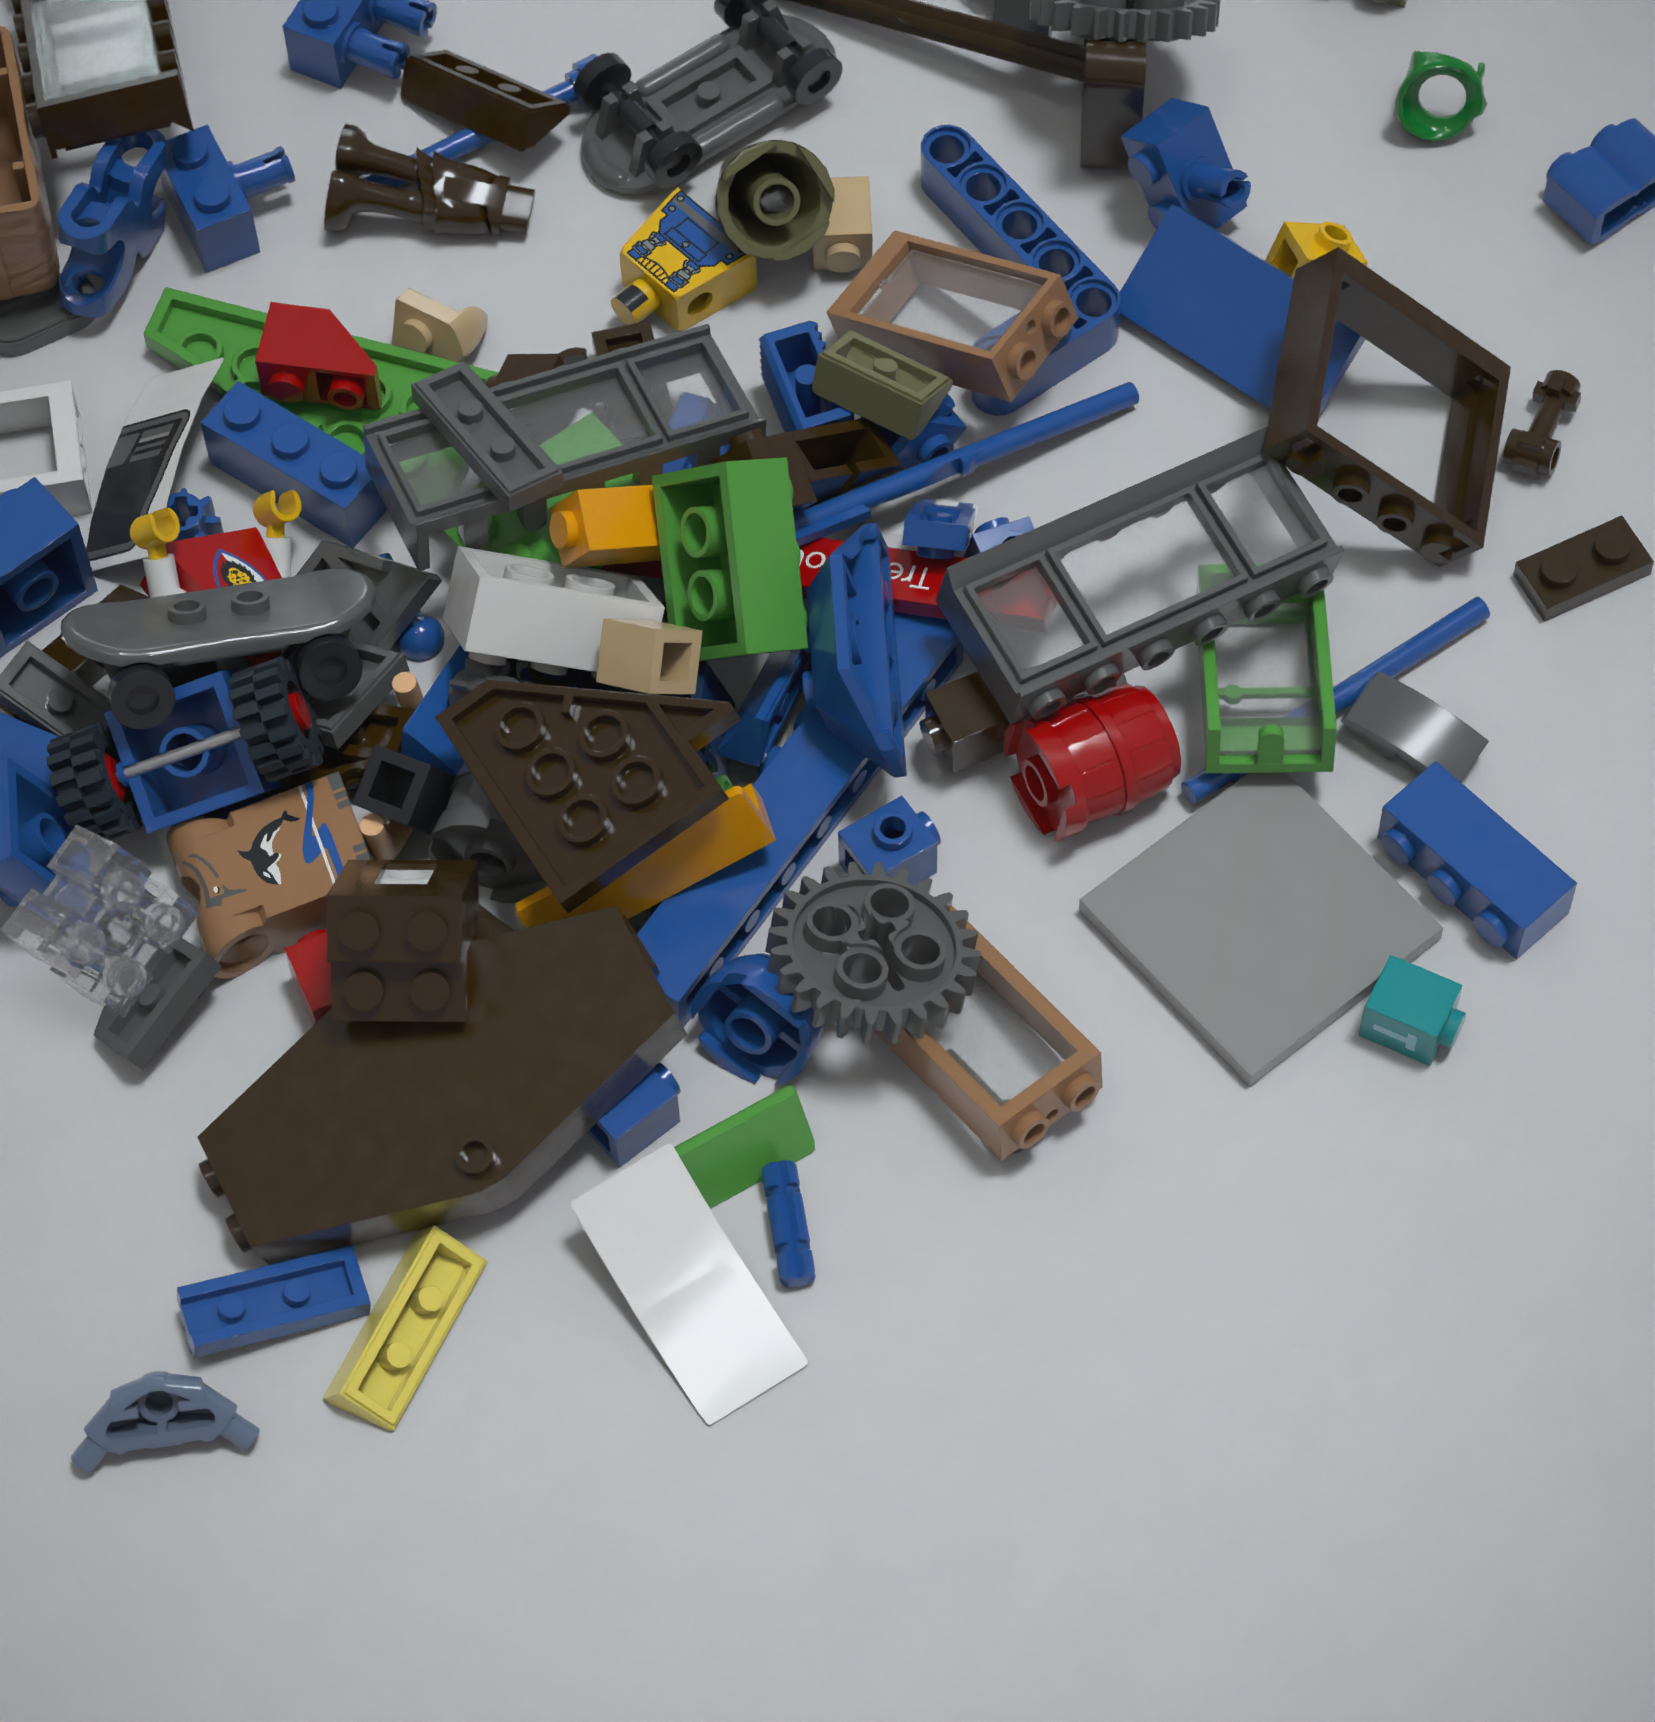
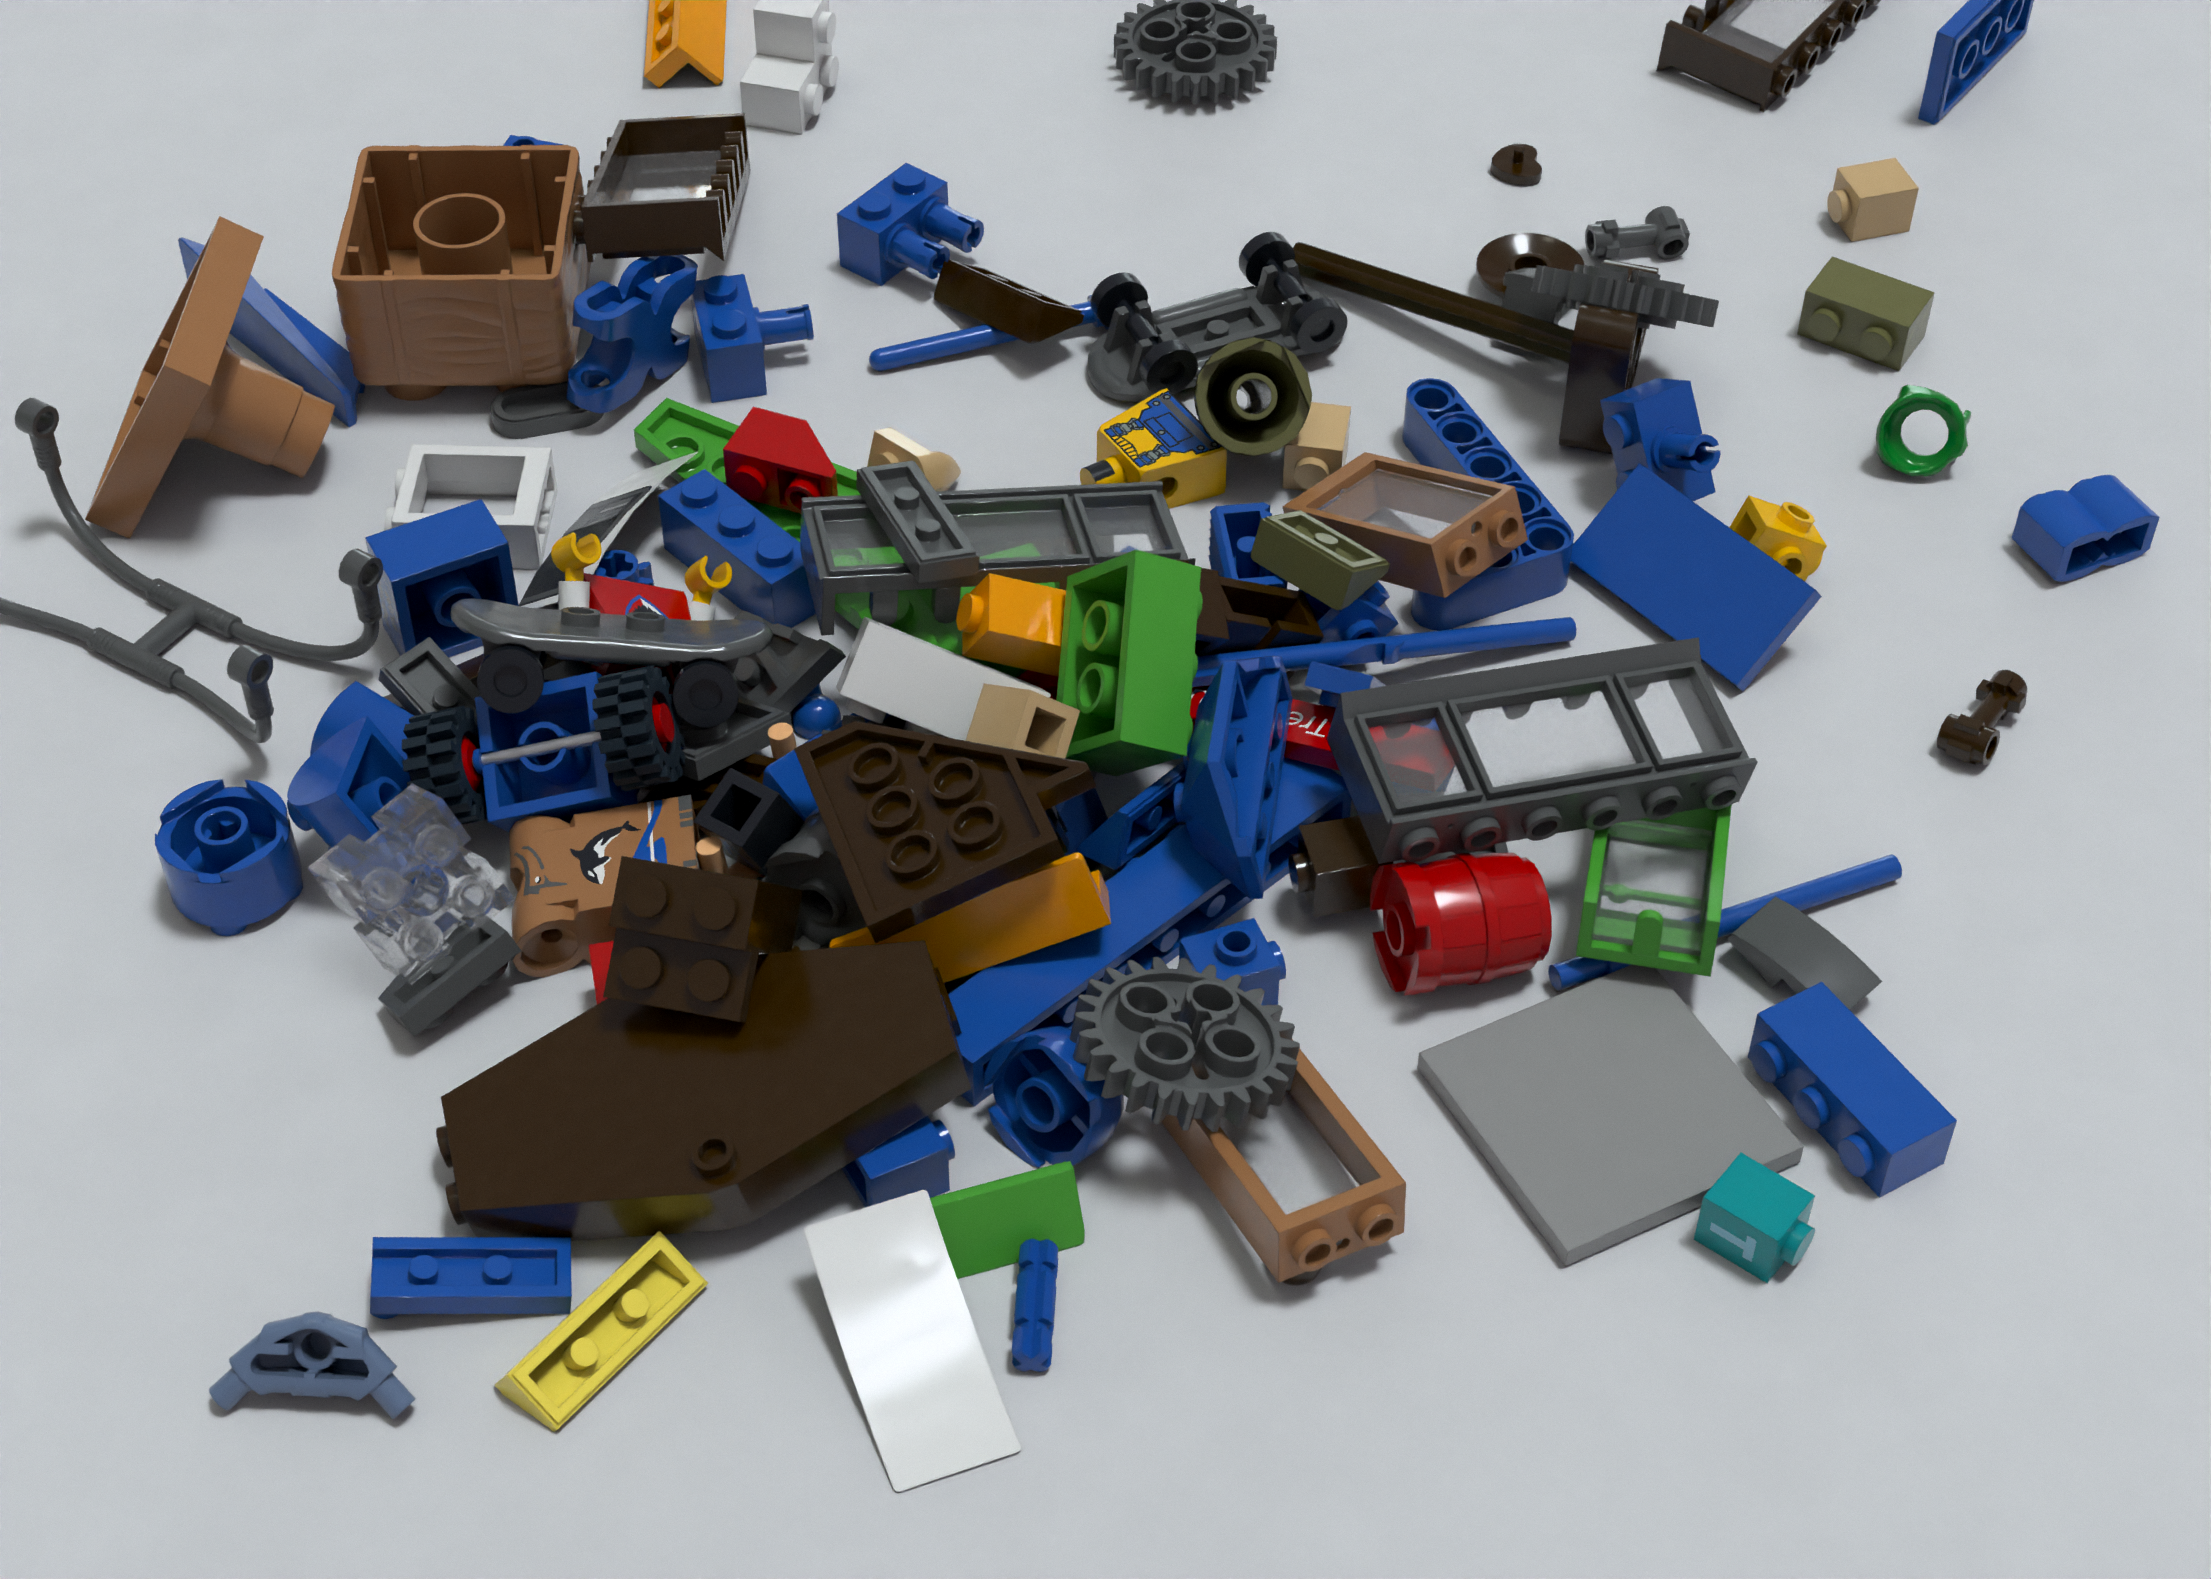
camera: 10 degrees right, 15 degrees down
(449, 194) = (951, 369): dark brown piece -> none
(1433, 349) = (1869, 615): dark brown window -> none
(1583, 568) = (2006, 850): dark brown plate -> none

